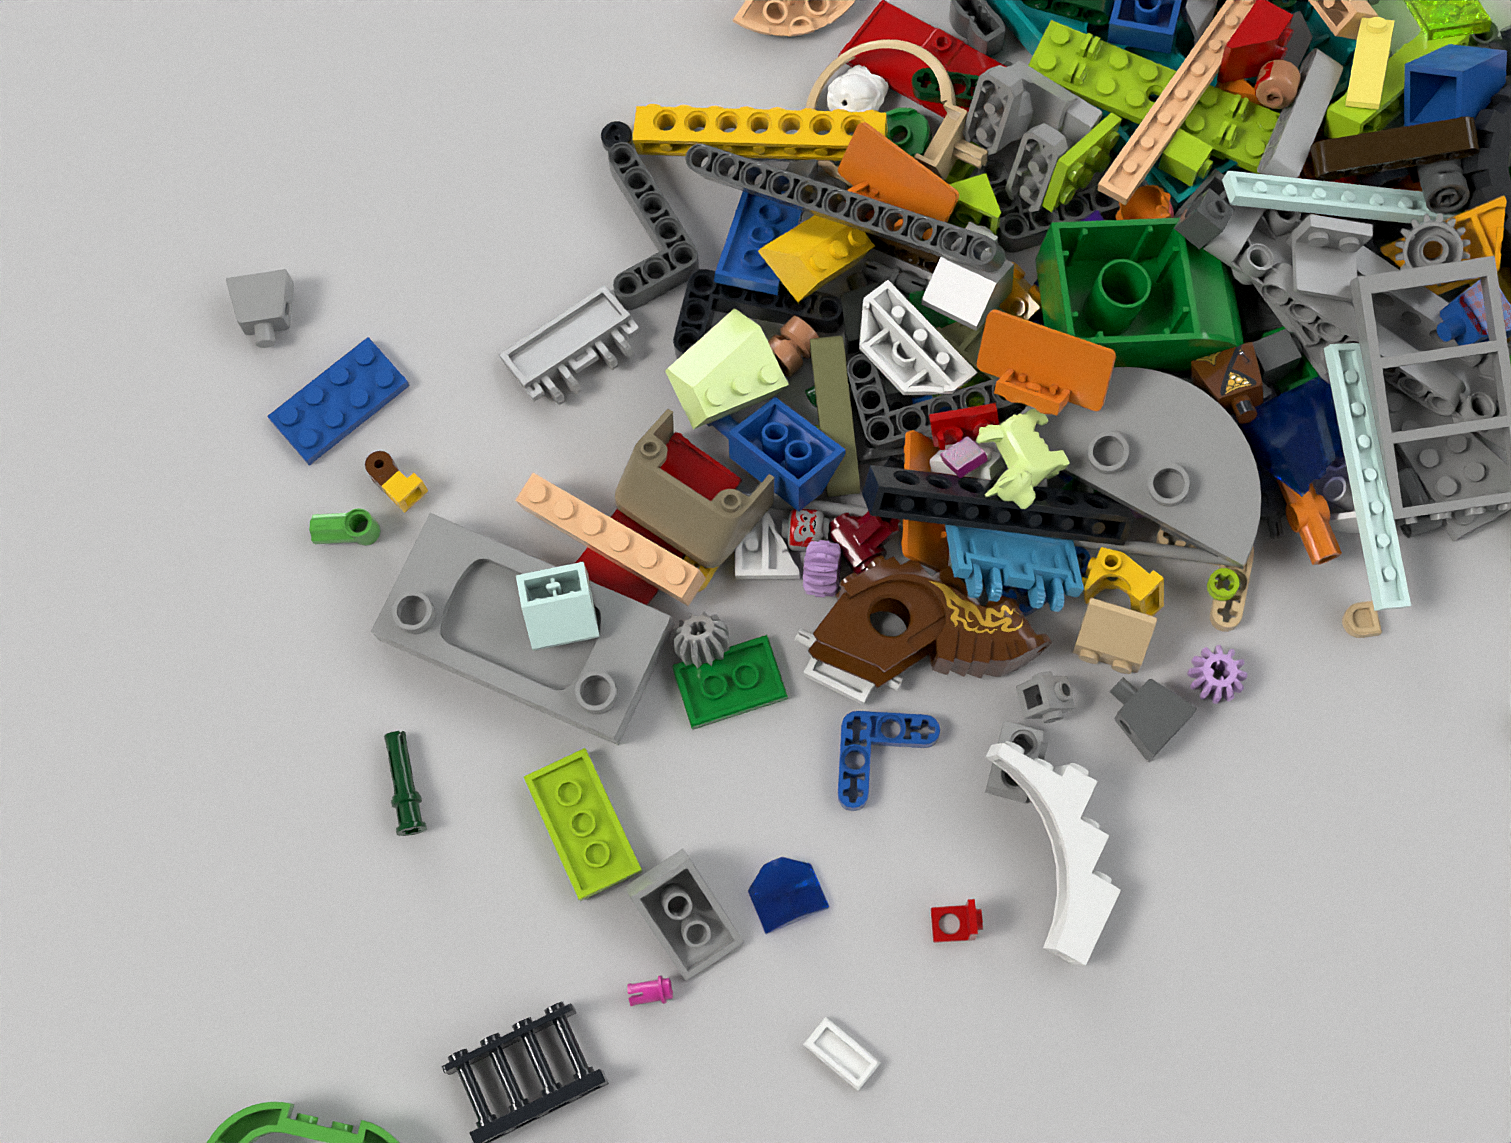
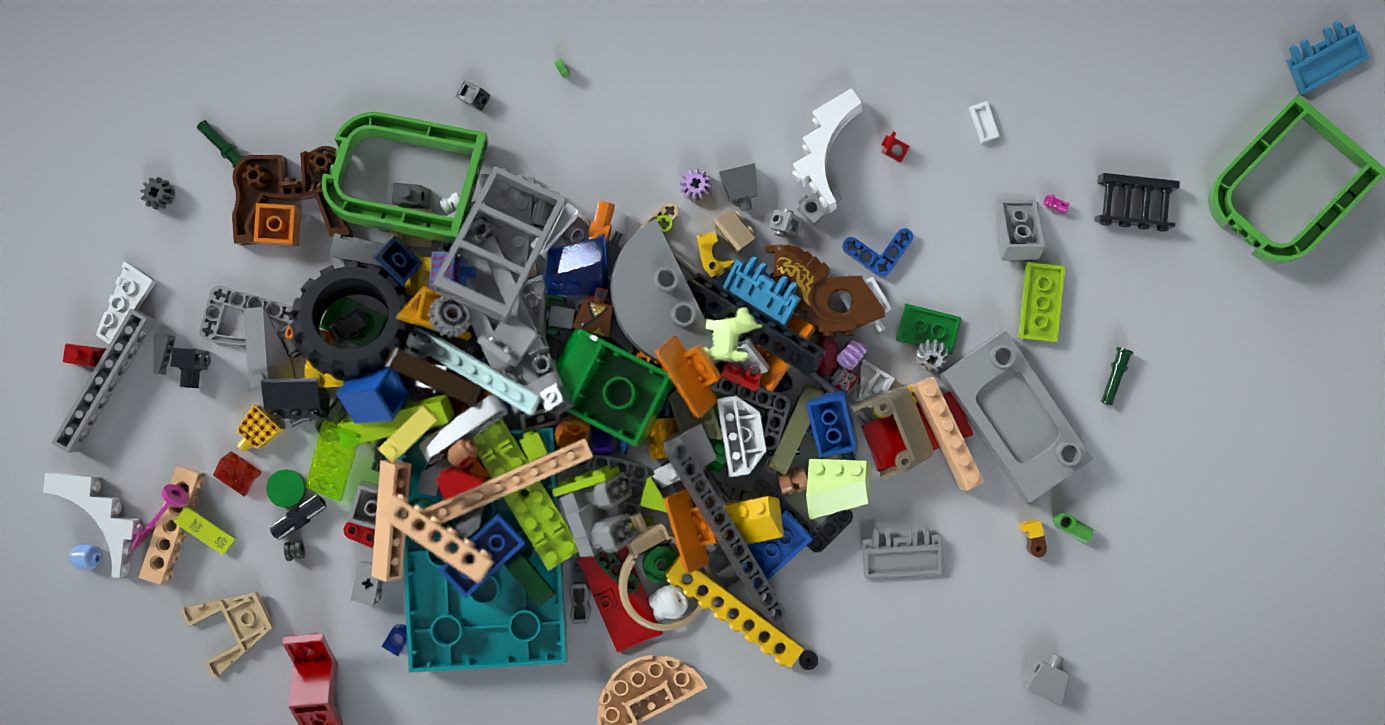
camera: 155 degrees left, 15 degrees up
(338, 401) = (1036, 601): blue plate -> none
(557, 606) = (998, 408): light aqua slope -> none
(656, 226) = (811, 594): dark grey beam -> none
(786, 893) = (964, 209): clear blue slope -> none
(964, 457) = (756, 356): tile -> none
(1361, 620) = (607, 168): tan tile -> none
(1367, 477) = (563, 226): light aqua plate -> none

